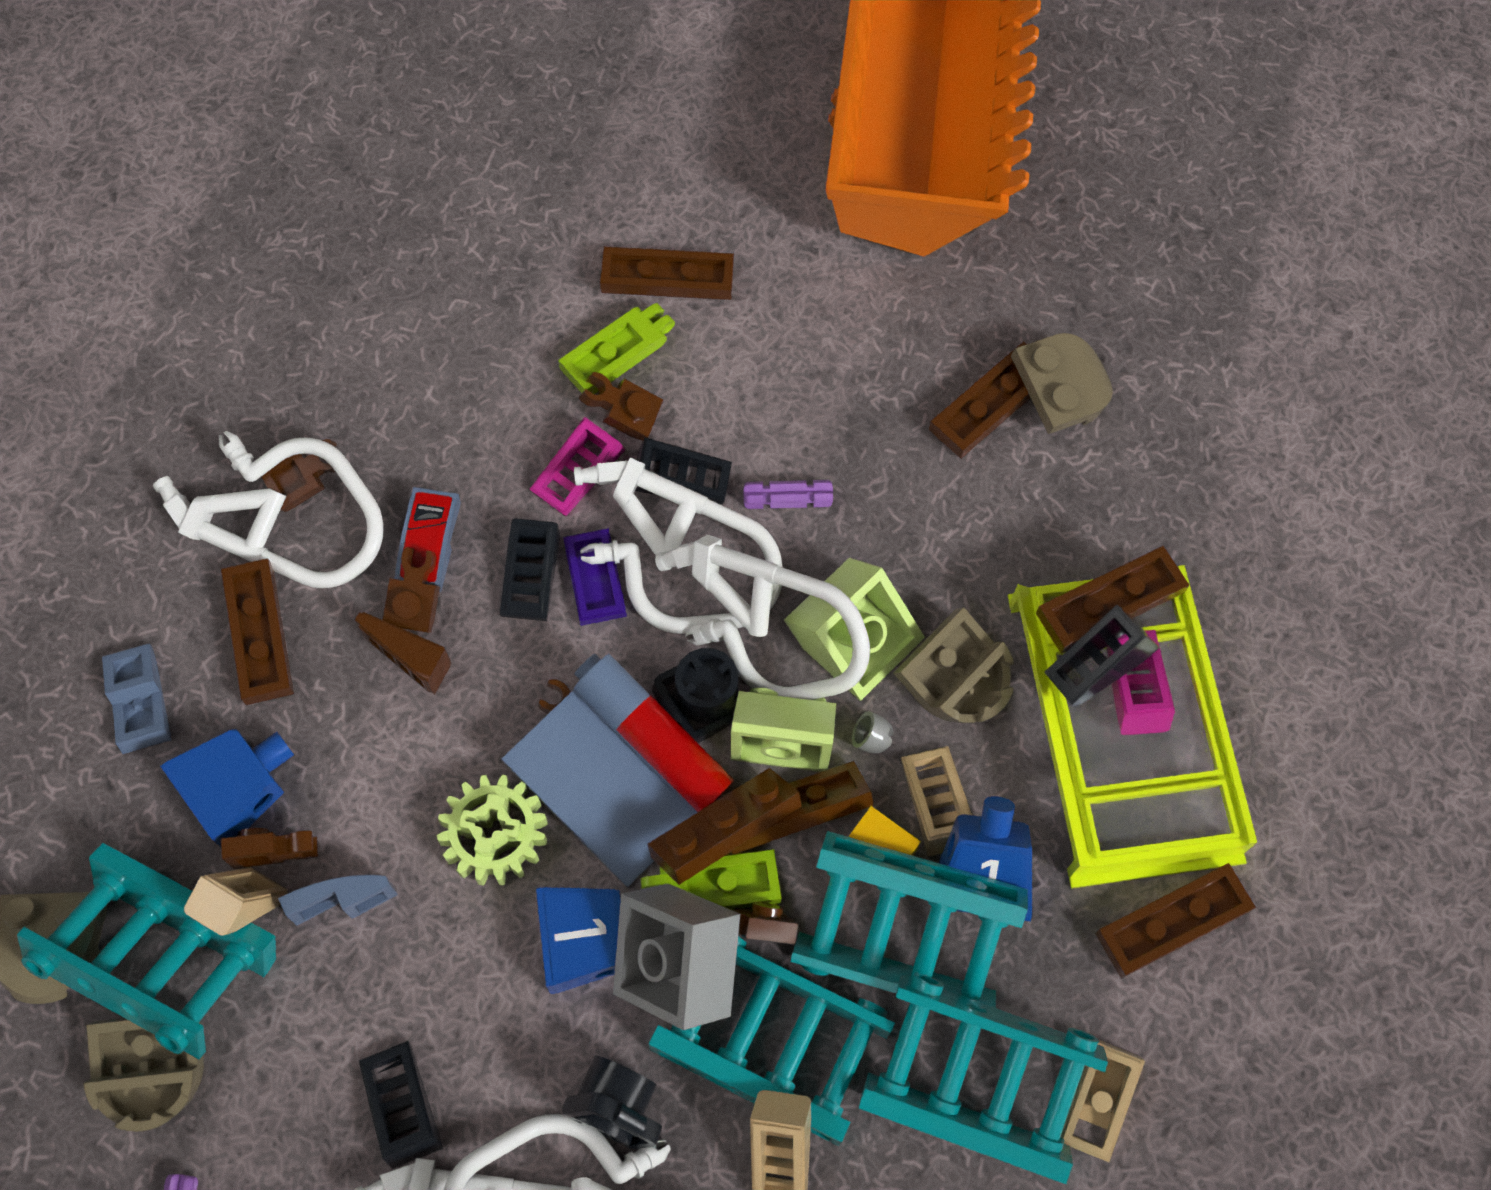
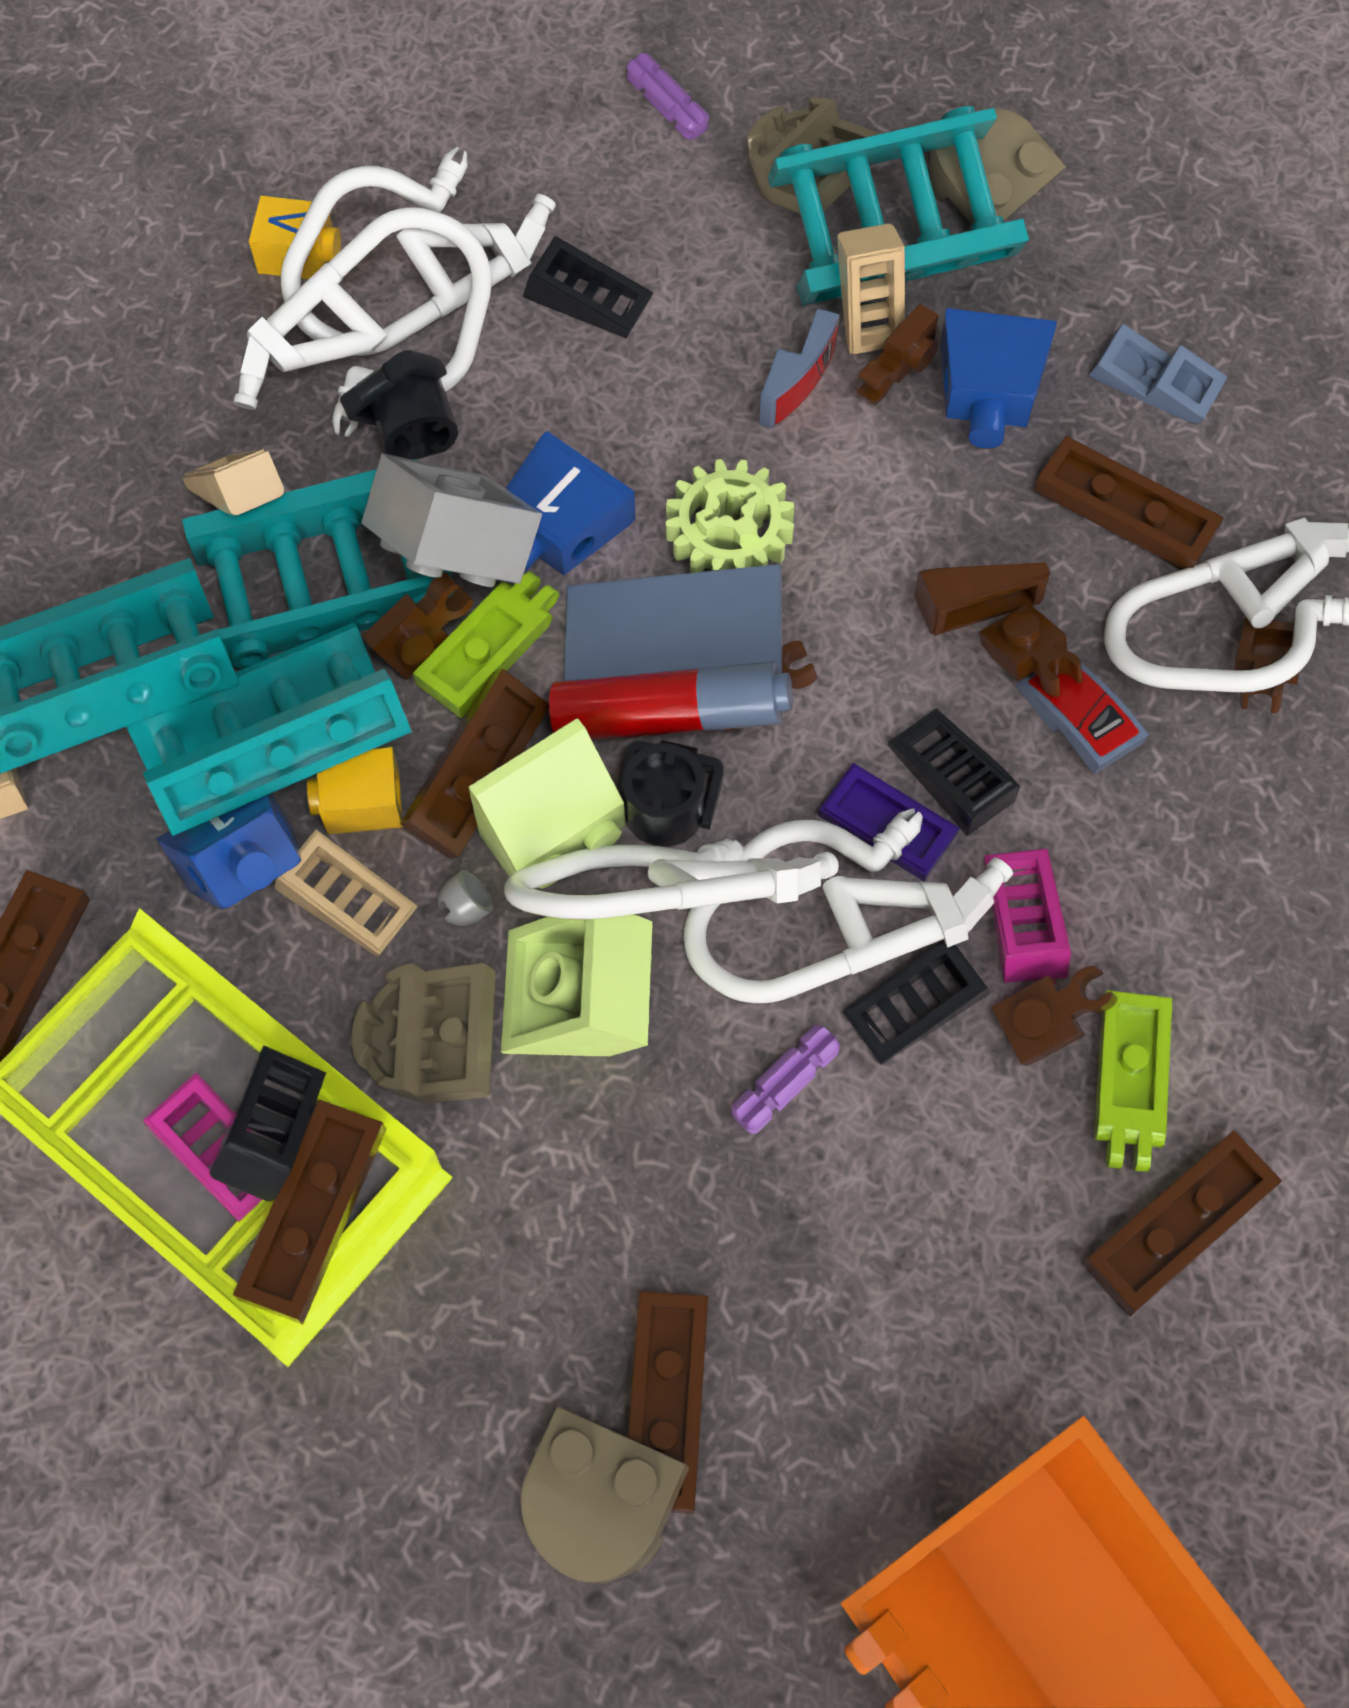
camera: 140 degrees right, 0 degrees up
(724, 825) = (518, 672): reddish brown plate -> none

